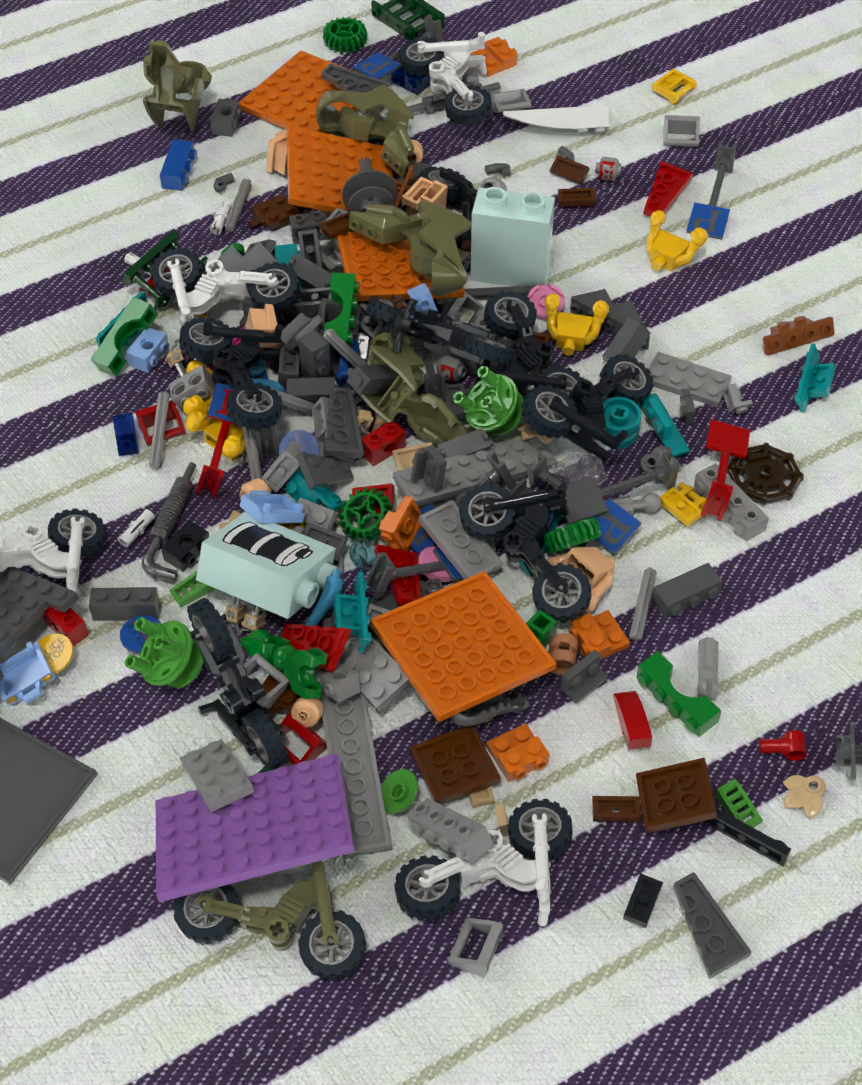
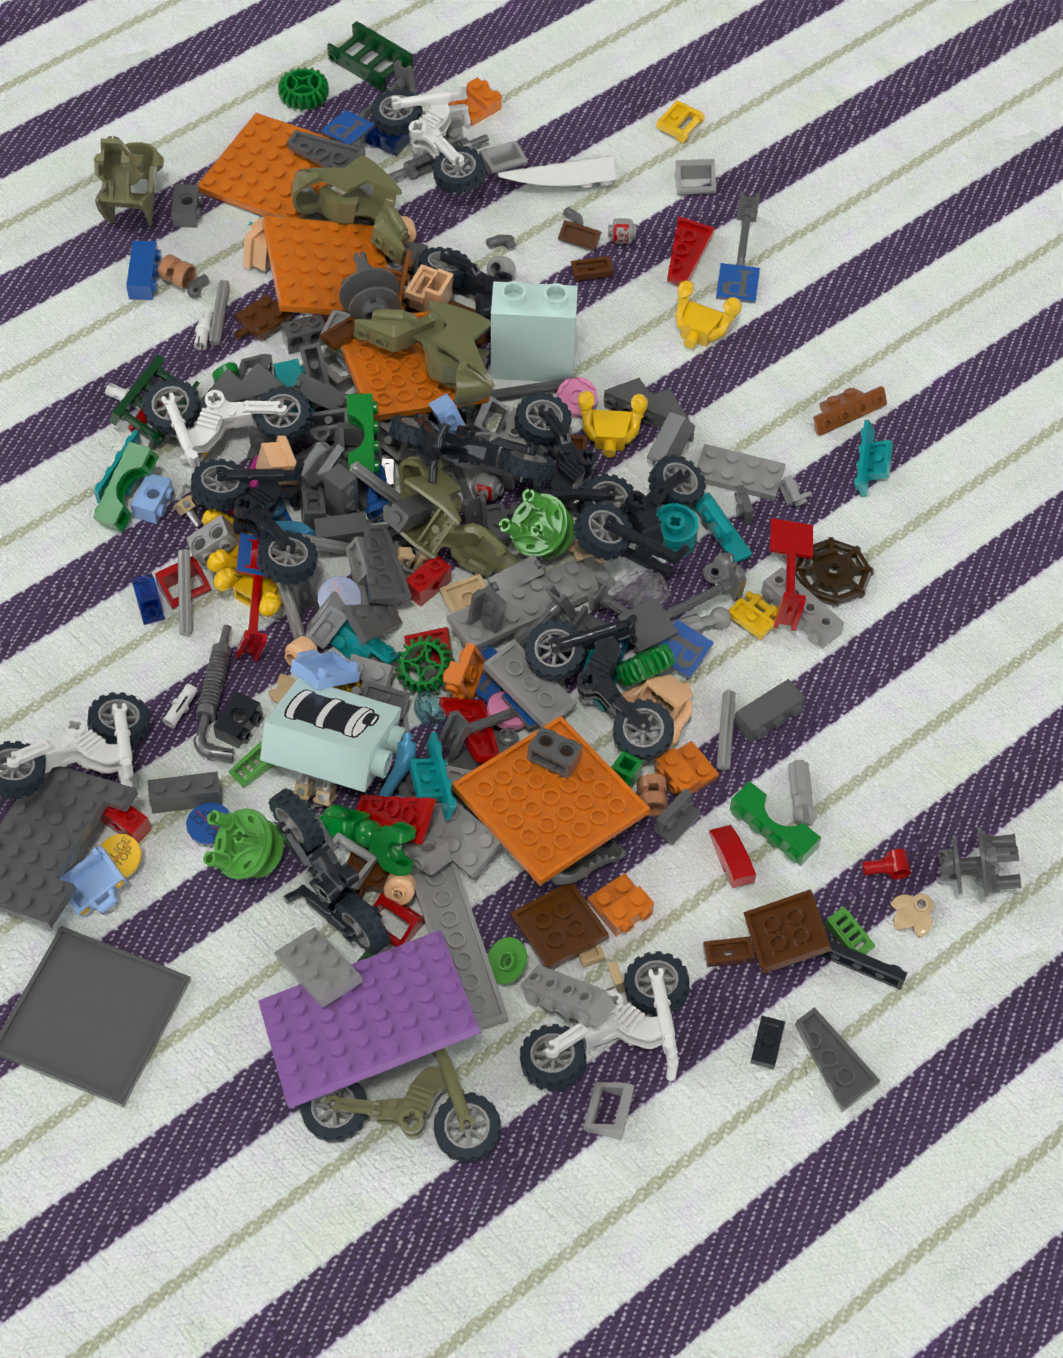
camera: 10 degrees left, 5 degrees up
(206, 167) = (176, 271): none -> nougat wheel
(472, 601) = (548, 751): none -> dark grey brick

